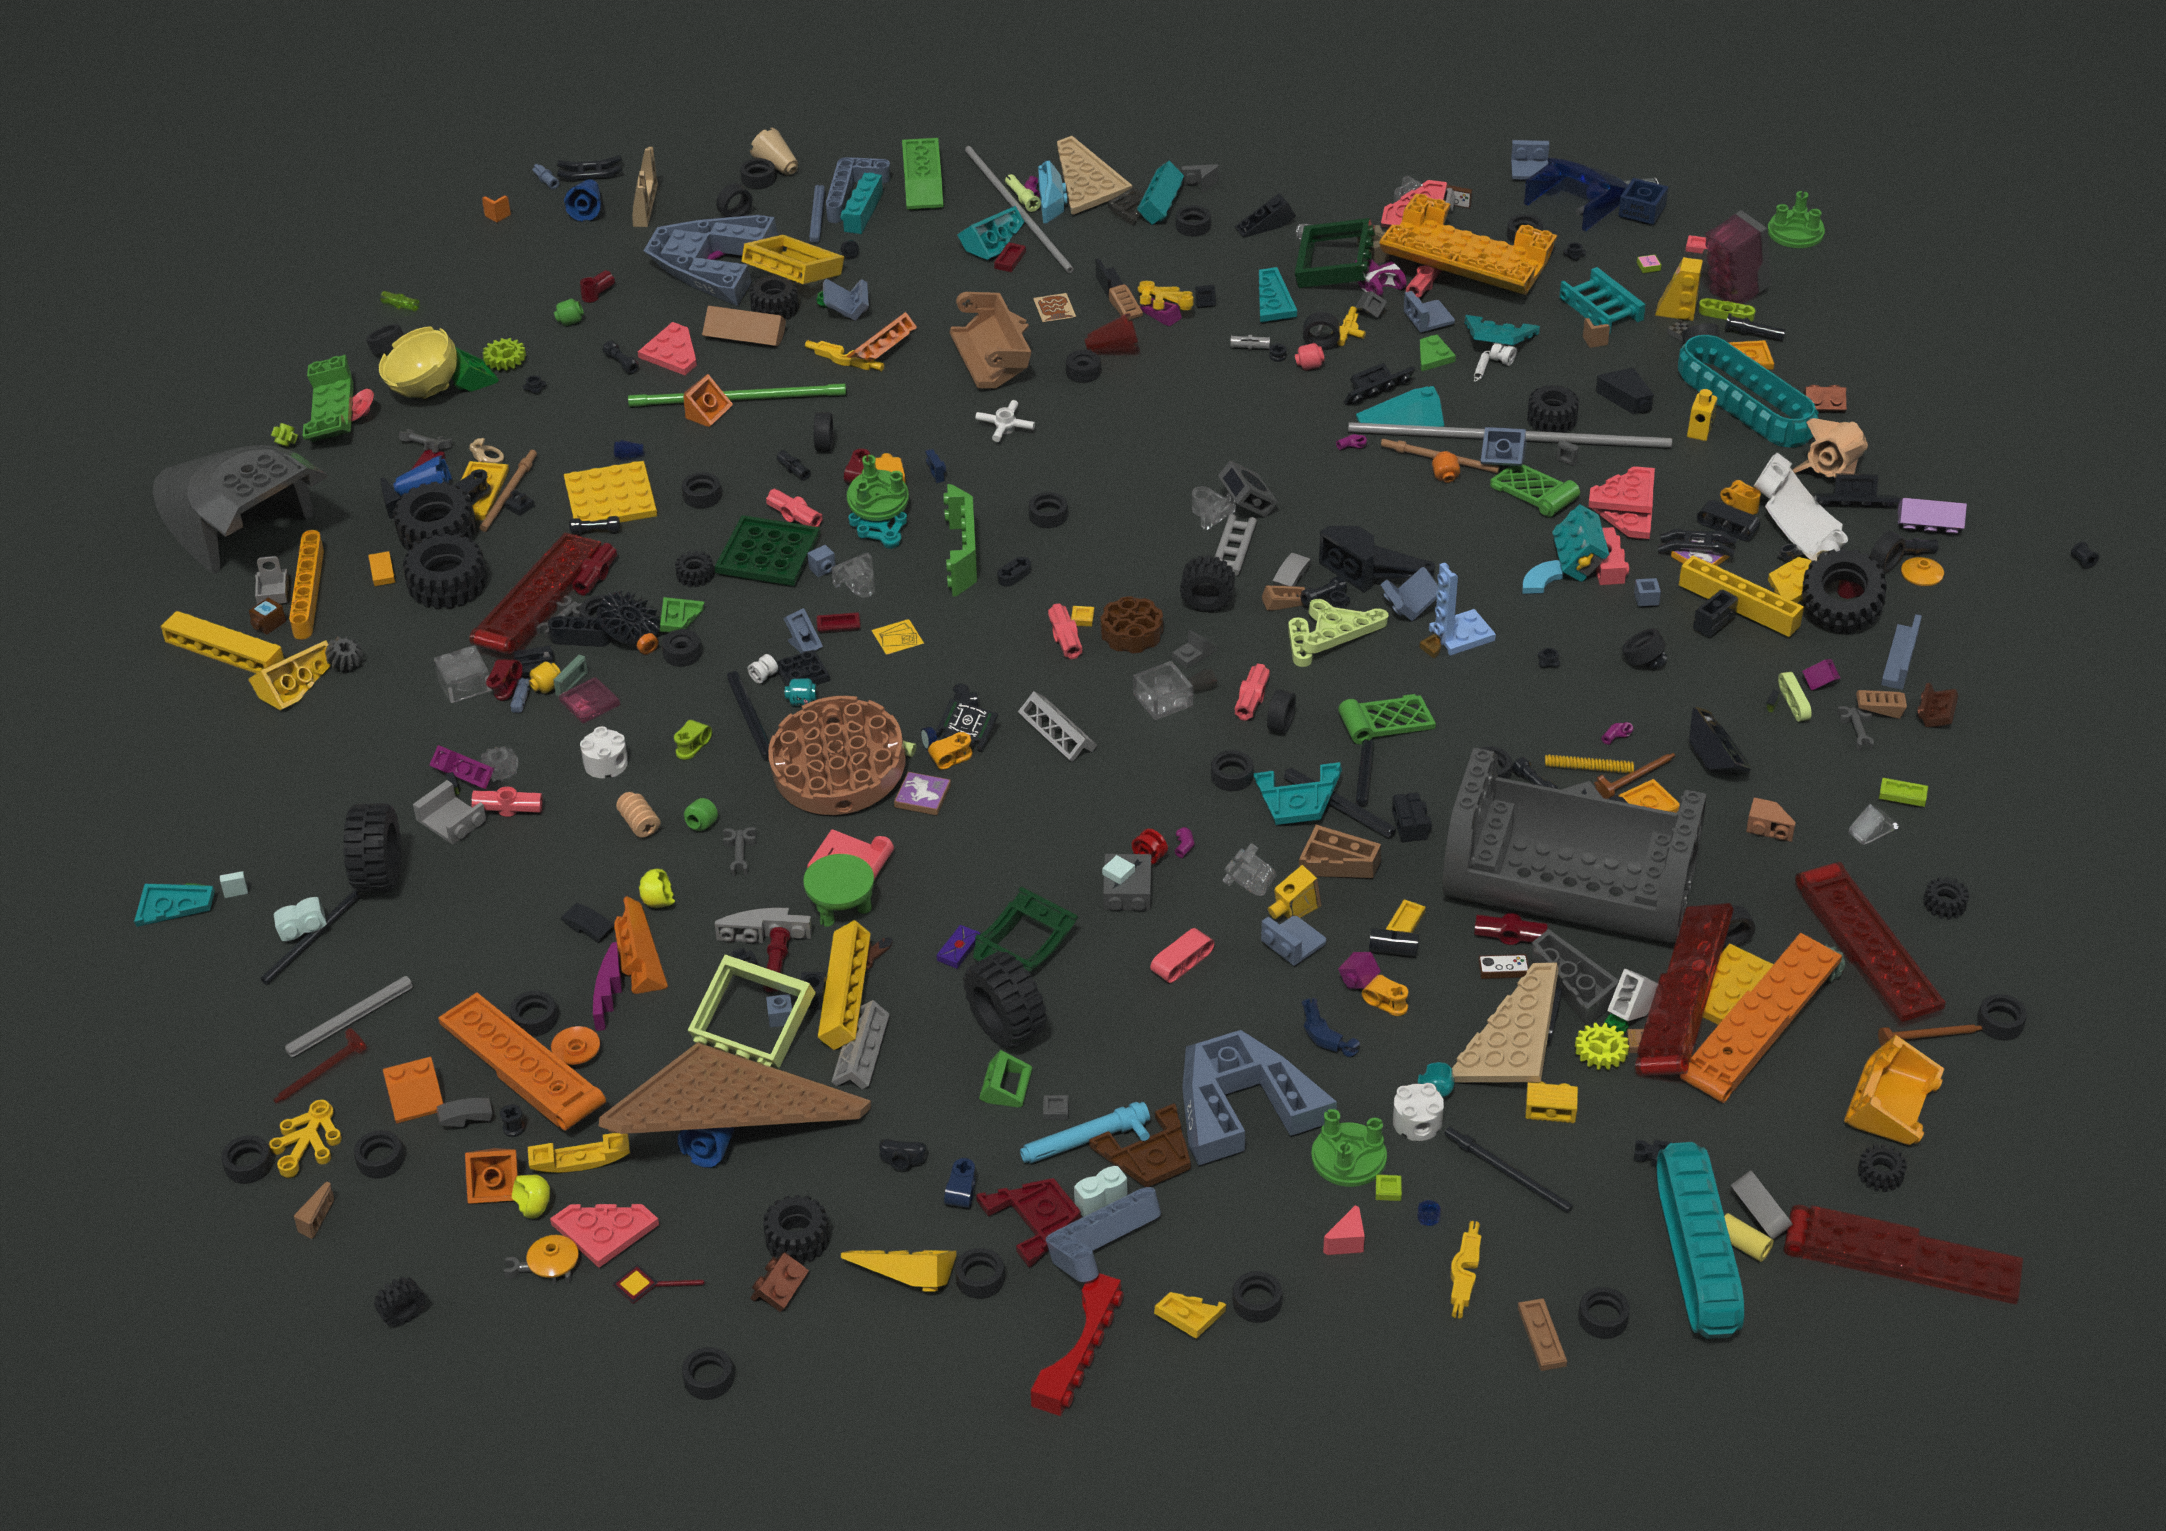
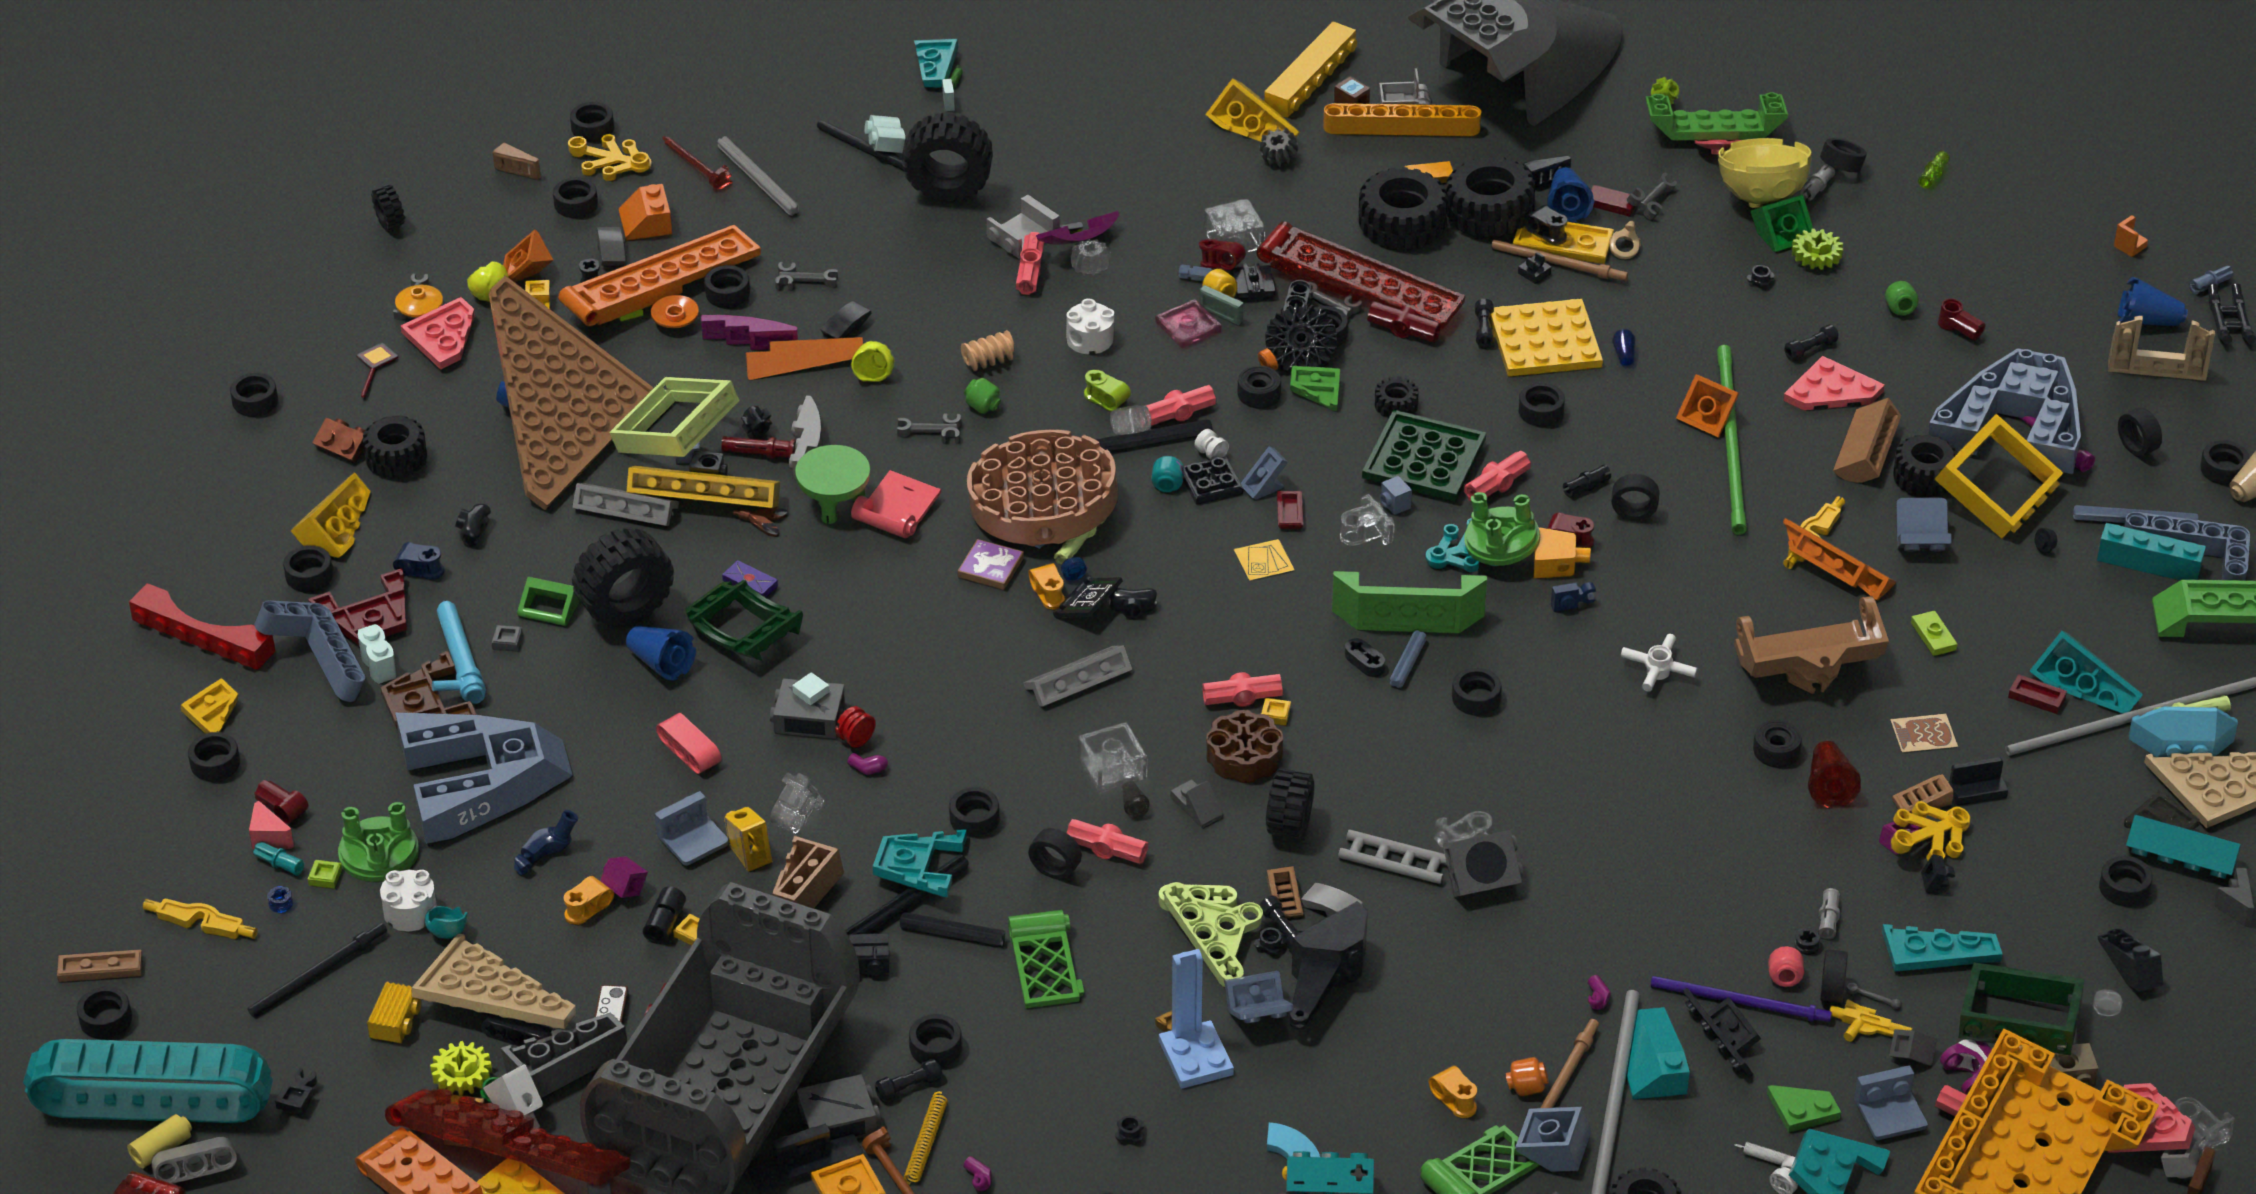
camera: 95 degrees right, 0 degrees up
(515, 974) = (788, 275): none -> dark grey bar
(709, 693) = (1181, 405): none -> coral piece
(737, 714) = (1130, 420): none -> clear gear
(947, 301) = (1934, 633): none -> lime plate
(1013, 548) = (1407, 659): none -> sand blue axle
(1071, 983) = (663, 650): none -> blue cone
(1310, 1228) = (284, 804): none -> dark red piece
(1346, 350) = (1744, 999): none -> dark purple bar
(1379, 1221) = (279, 858): none -> teal axle
(1467, 499) = (1455, 1091): none -> light orange piece

